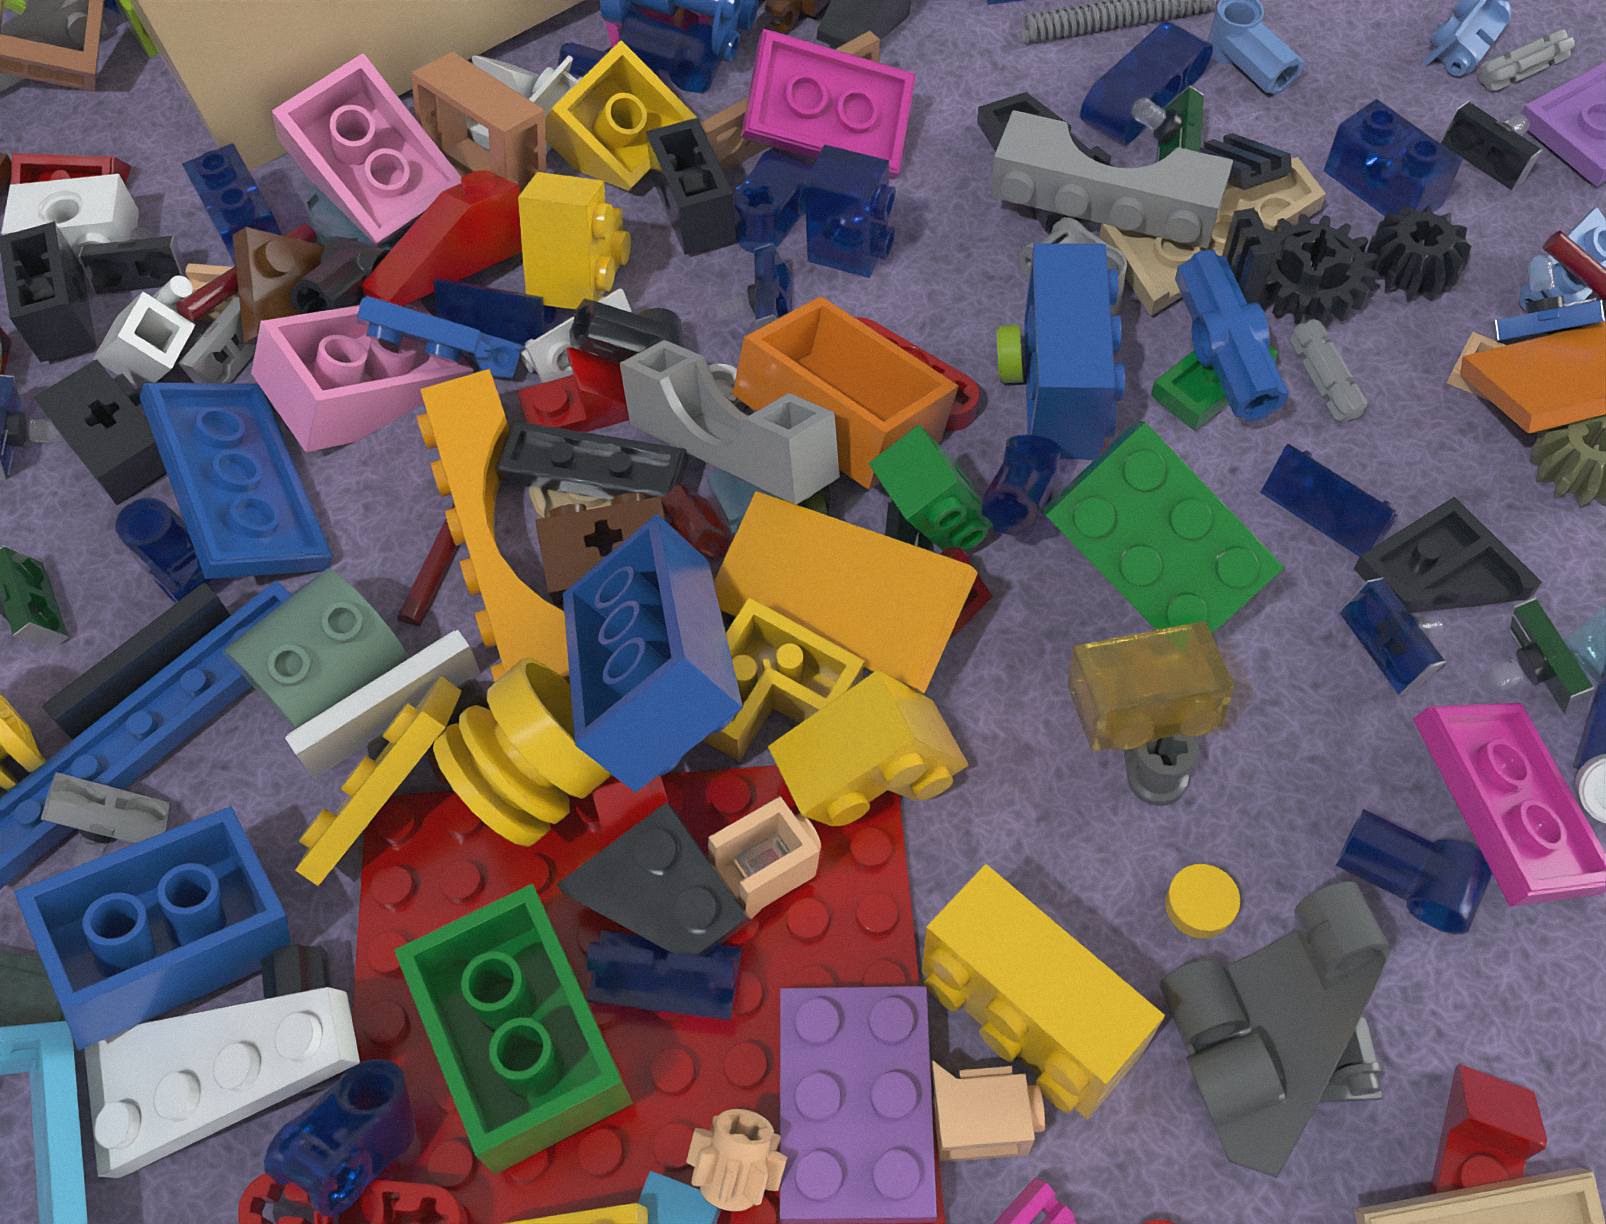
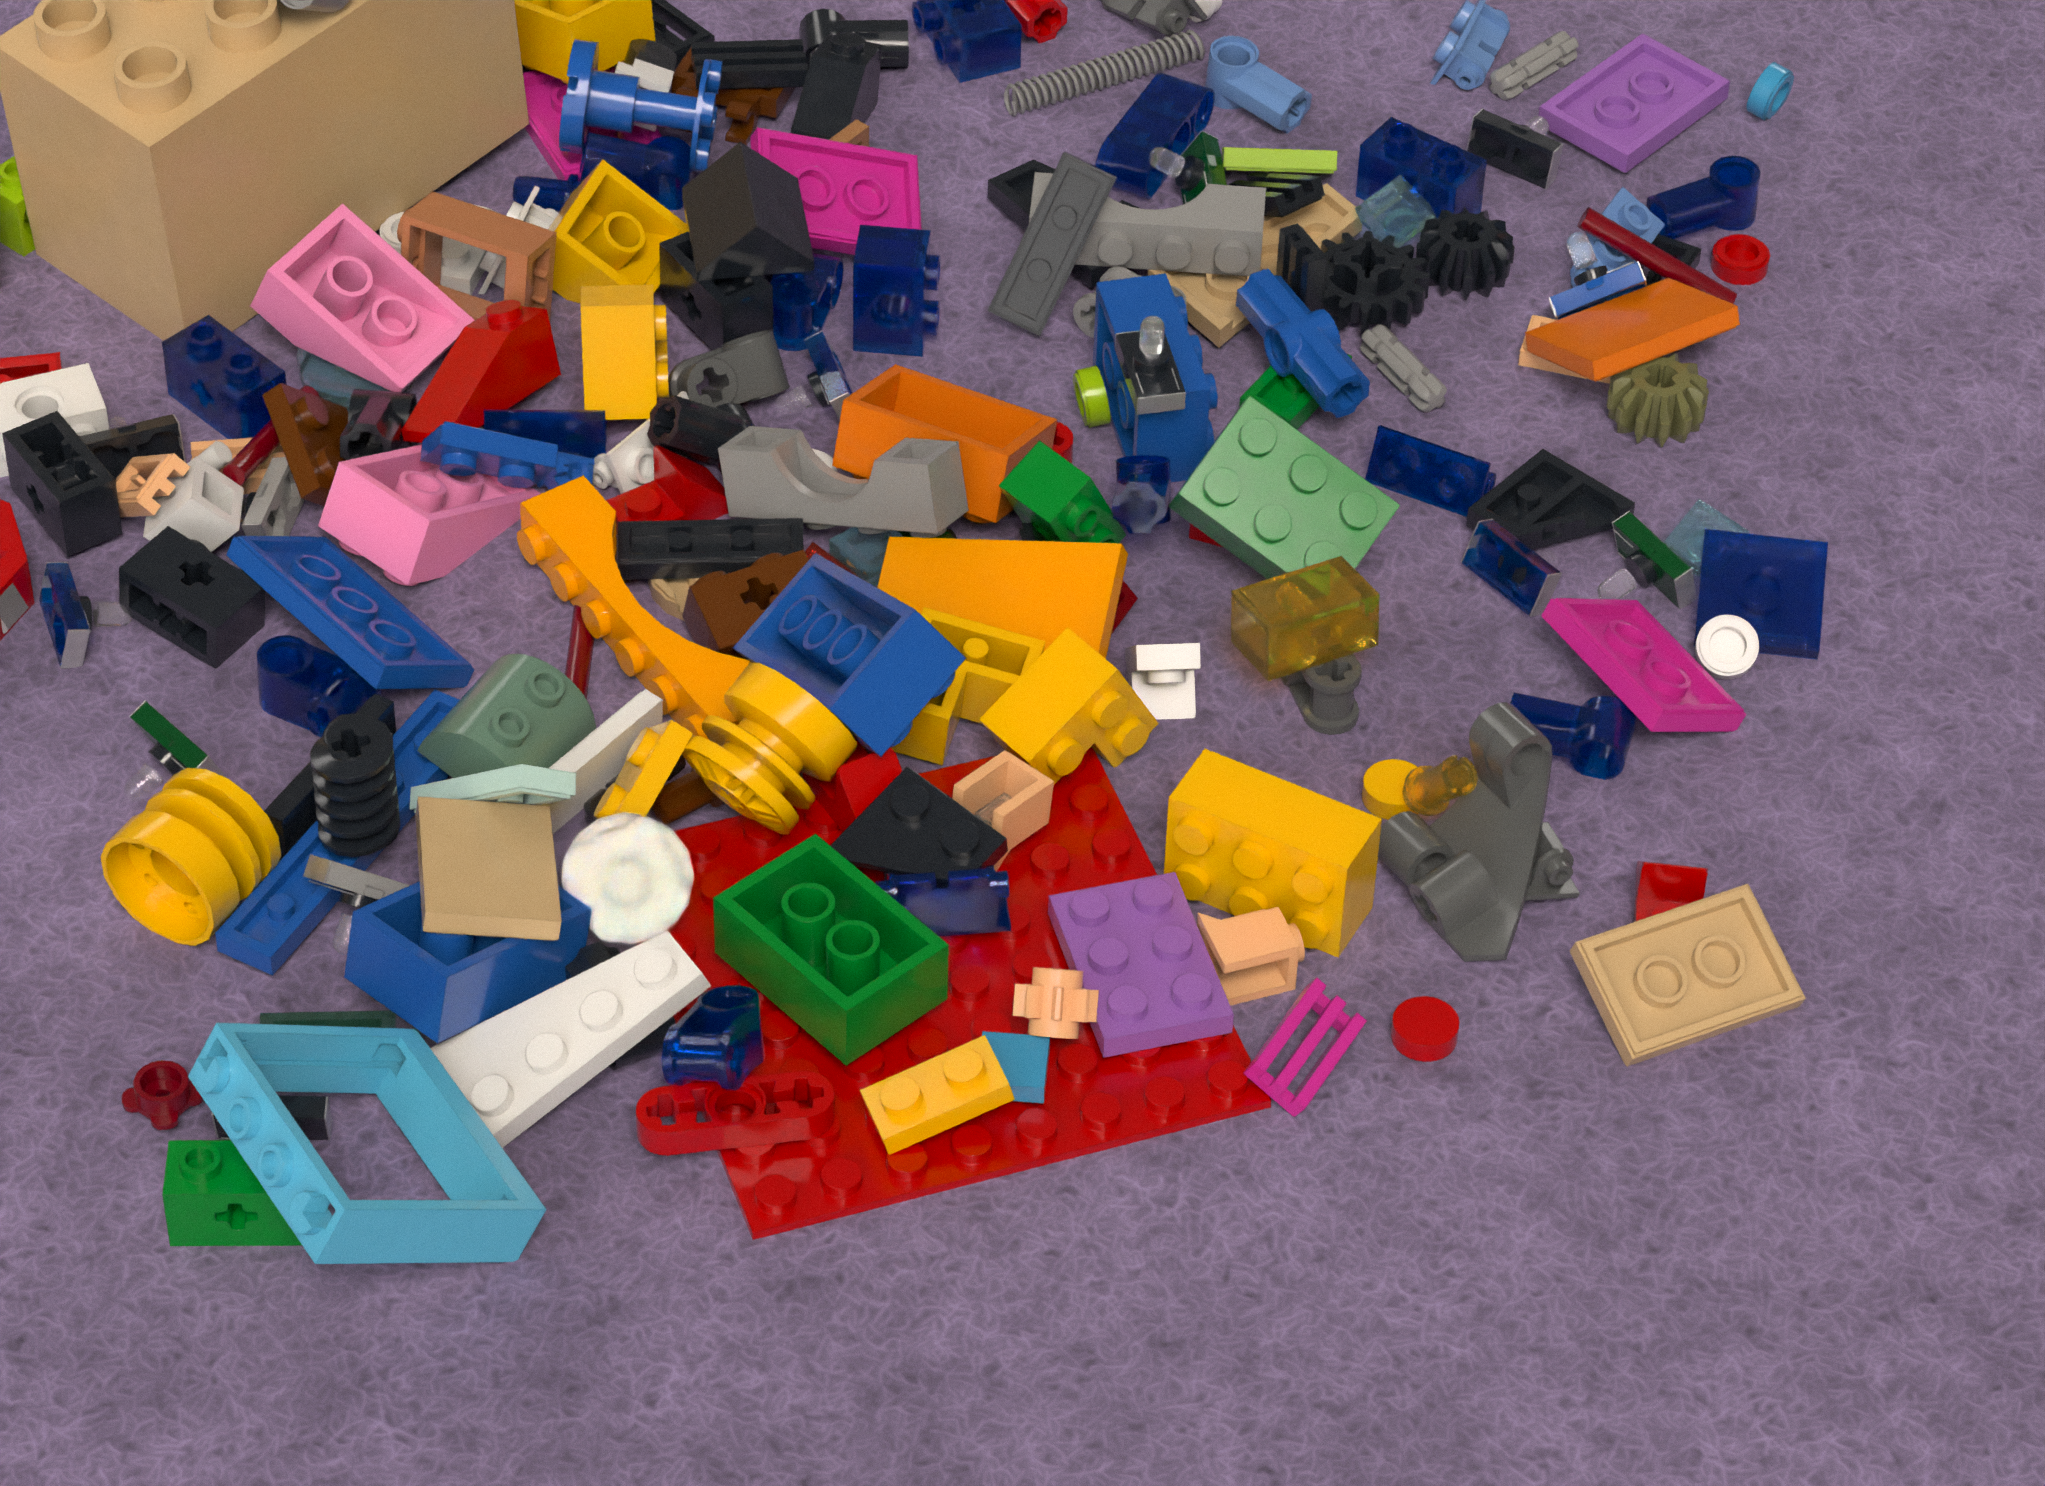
camera: 20 degrees left, 15 degrees down
(106, 308) = (136, 493): none -> light nougat tile
(107, 711) = (355, 786): none -> black piece
(184, 854) = (487, 869): none -> tan tile
(252, 740) = (507, 785): none -> light aqua tile
(345, 874) = (630, 876): none -> clear smoke tile
(688, 270) = (736, 372): none -> dark grey piece
(726, 121) = (746, 218): none -> black slope
(989, 702) = (1164, 677): none -> white slope
(1010, 185) = (1052, 243): none -> black tile
(1057, 358) = (1150, 368): none -> piece
(1241, 928) = (1431, 788): none -> clear yellow pin
(1258, 125) = (1279, 160): none -> lime tile
(1358, 199) = (1395, 212): none -> clear light blue plate

